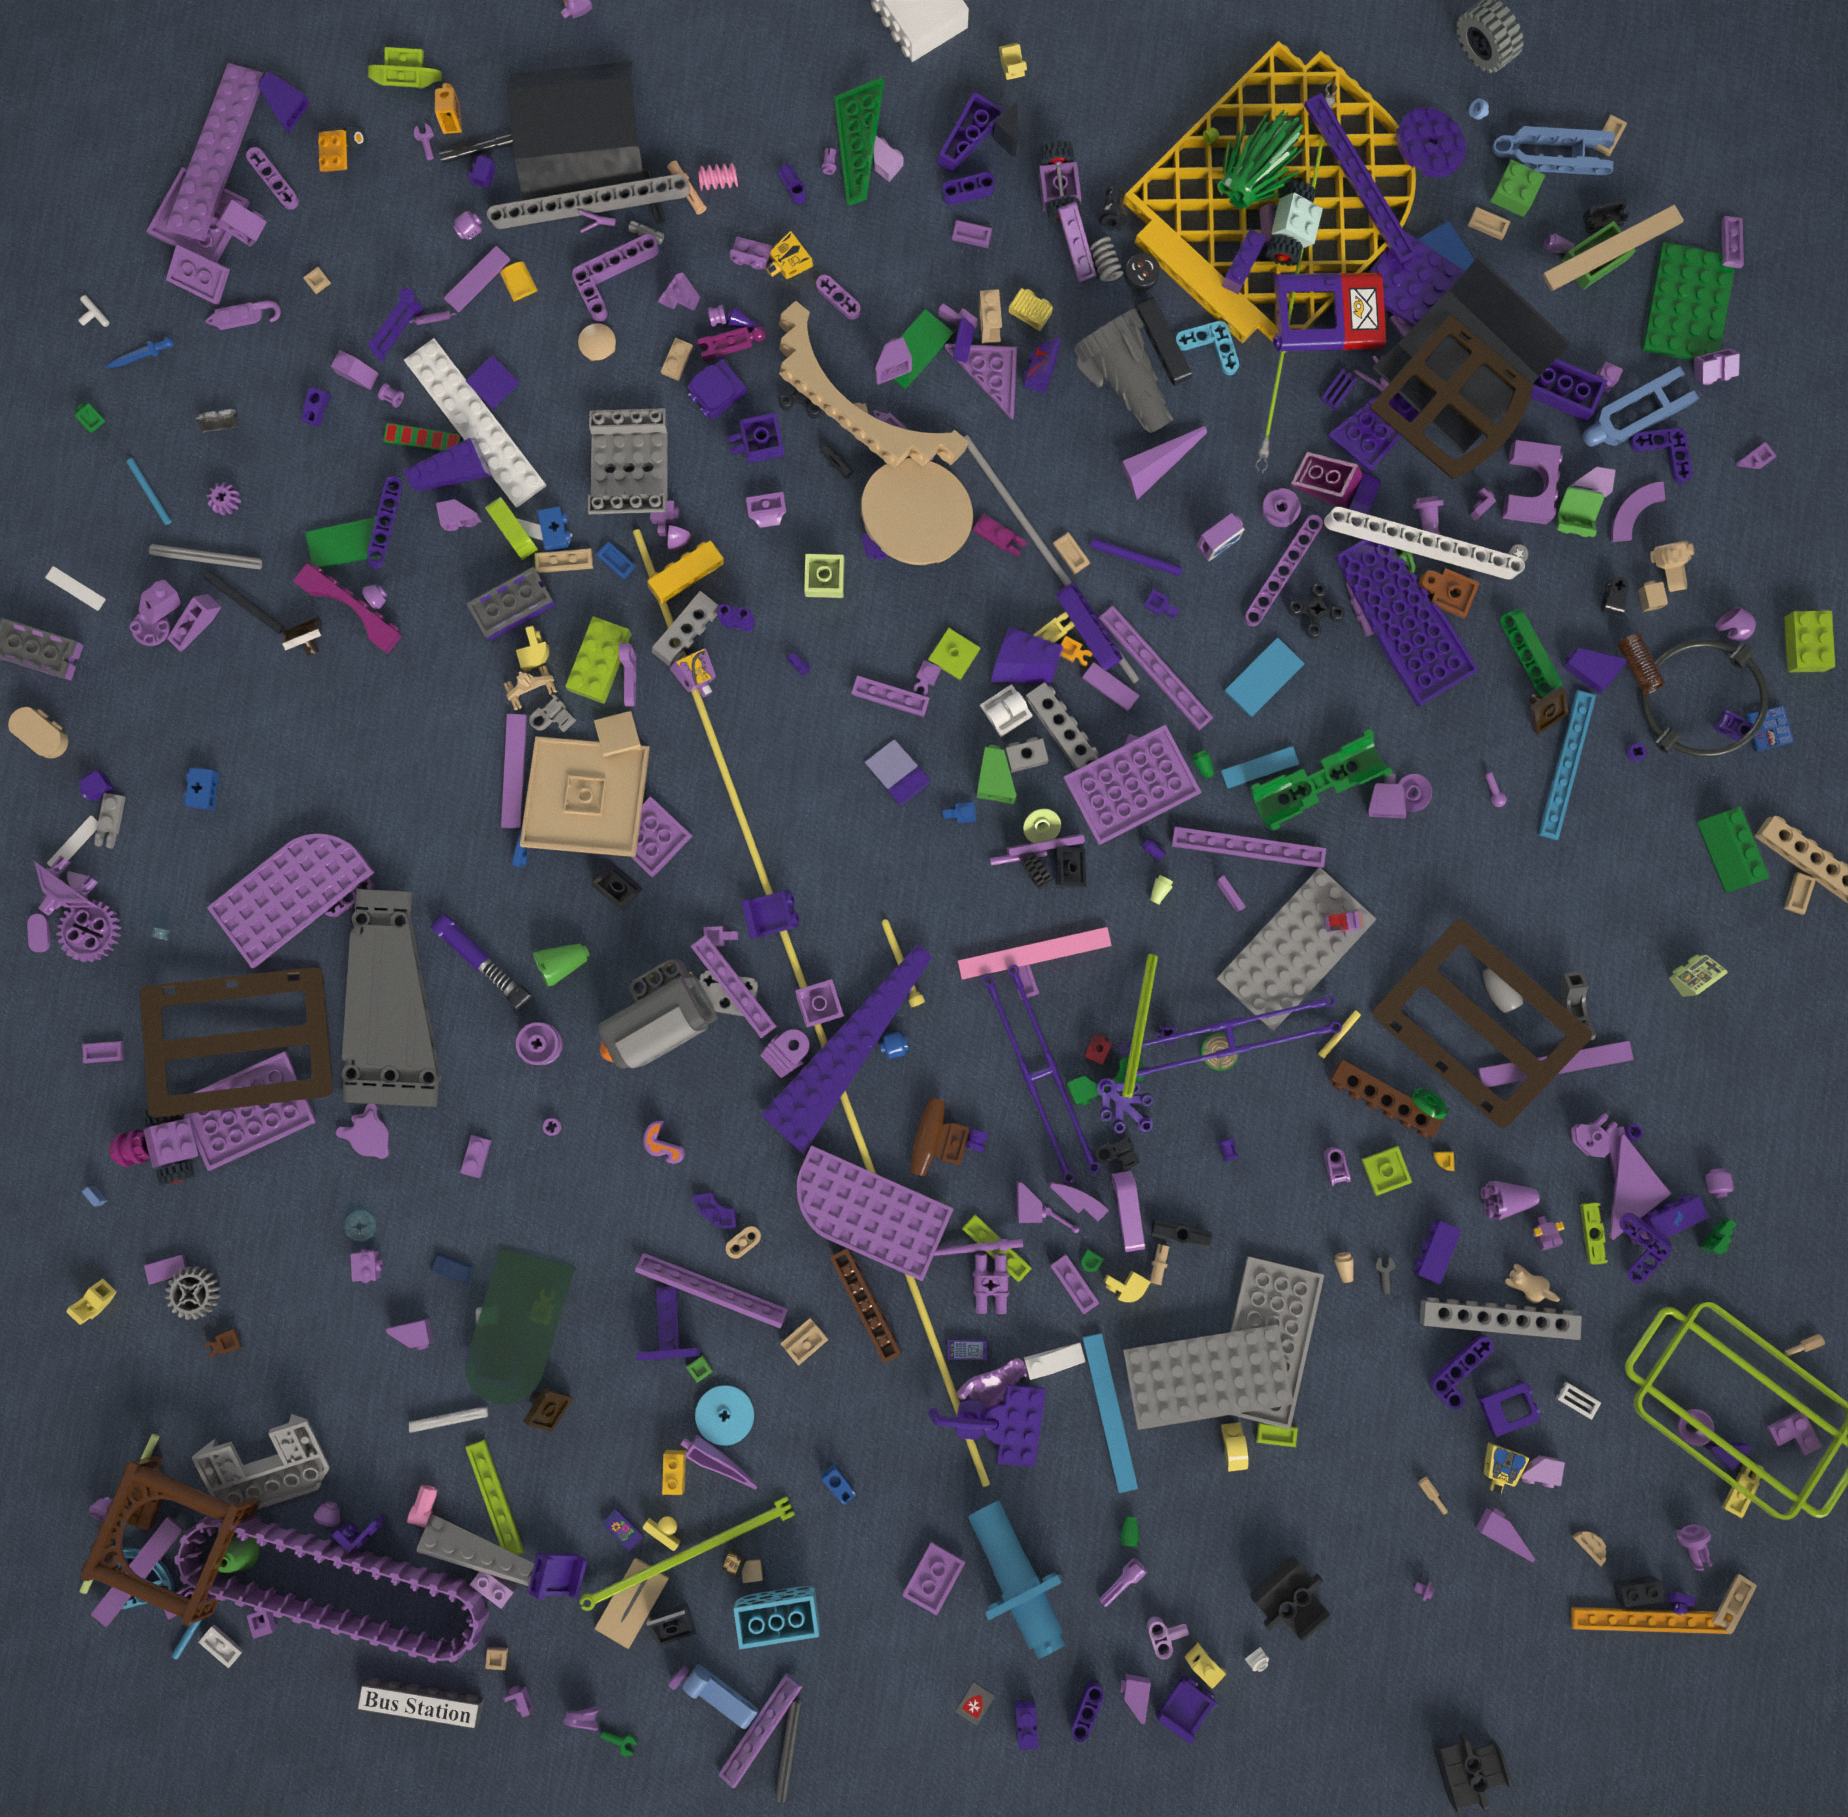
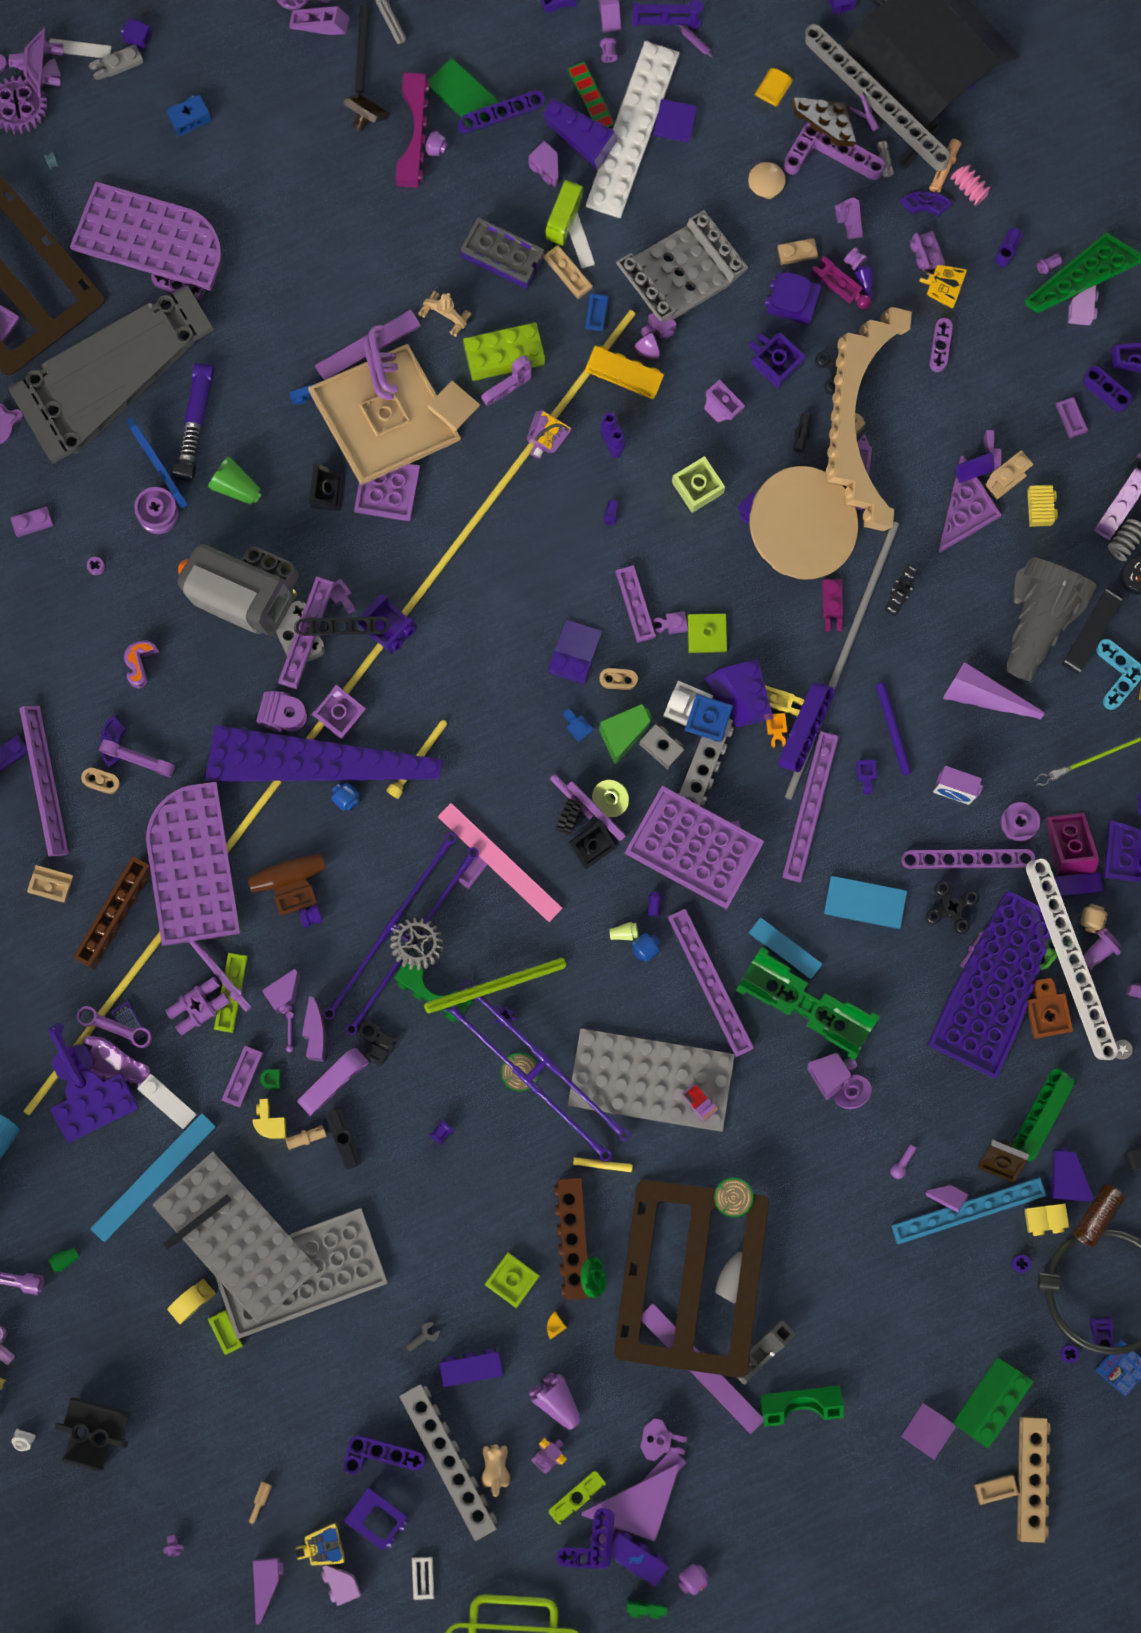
camera: 55 degrees right, 5 degrees down
(468, 225) = (790, 17): medium lavender head -> none
(477, 279) = (752, 54): medium lavender tile -> none
(497, 1016) = (156, 462): none -> blue tile
(534, 655) = (473, 299): light yellow brick -> none
(539, 775) = (377, 367): none -> medium lavender piece
(548, 519) = (590, 237): blue brick -> none
(554, 711) = (438, 345): light grey piece -> none
(579, 255) = (826, 118): none -> dark brown plate
(700, 604) = (585, 397): light grey brick -> none
(706, 224) = (926, 201): none -> dark purple tile
(746, 1198) = (115, 750): none -> medium lavender piece
(757, 948) = (351, 628): none -> black beam
(894, 361) = (914, 420): medium lavender slope -> none
(923, 341) = (941, 435): green tile -> none
(944, 752) = (618, 677): none -> tan plate
(963, 1365) = (114, 1027): none -> medium lavender piece
(1028, 470) = (901, 590): none -> black gear
(1031, 700) = (708, 718): none -> blue tile
(1041, 366) = (998, 546): dark purple slope -> none
(1070, 1068) = (421, 958): none -> light grey gear
(1071, 553) = (859, 673): tan tile -> none
(1098, 1049) = (453, 967): dark red brick -> none
(1110, 686) = (768, 779): medium lavender tile -> none
(1123, 1103) = (420, 1016): dark purple plant -> none
(1177, 1401) = (197, 1221): none -> black bar
(1184, 880) = (645, 947): none -> blue head
(1203, 763) = (756, 898): green cone -> none
(1230, 894) = (659, 993): medium lavender tile -> none
(1337, 1170) = (485, 1235): medium lavender piece -> none
(1344, 1265) = (406, 1297): tan cone -> none
(1400, 503) = (1093, 918): none -> tan head
(1441, 946) = (734, 1197): none -> dark tan tile
(1546, 773) = (948, 1196): none -> medium lavender tile
(1615, 707) = (1046, 1218): none -> light yellow brick
(1637, 1134) = (686, 1479): dark purple hinge -> none
(1647, 982) = (824, 1401): none -> green arch
(1697, 975) = (860, 1440): yellowish green slope -> none
(1720, 916) = (928, 1431): none -> medium lavender slope
(1738, 763) = (1069, 1360): none -> dark purple bush

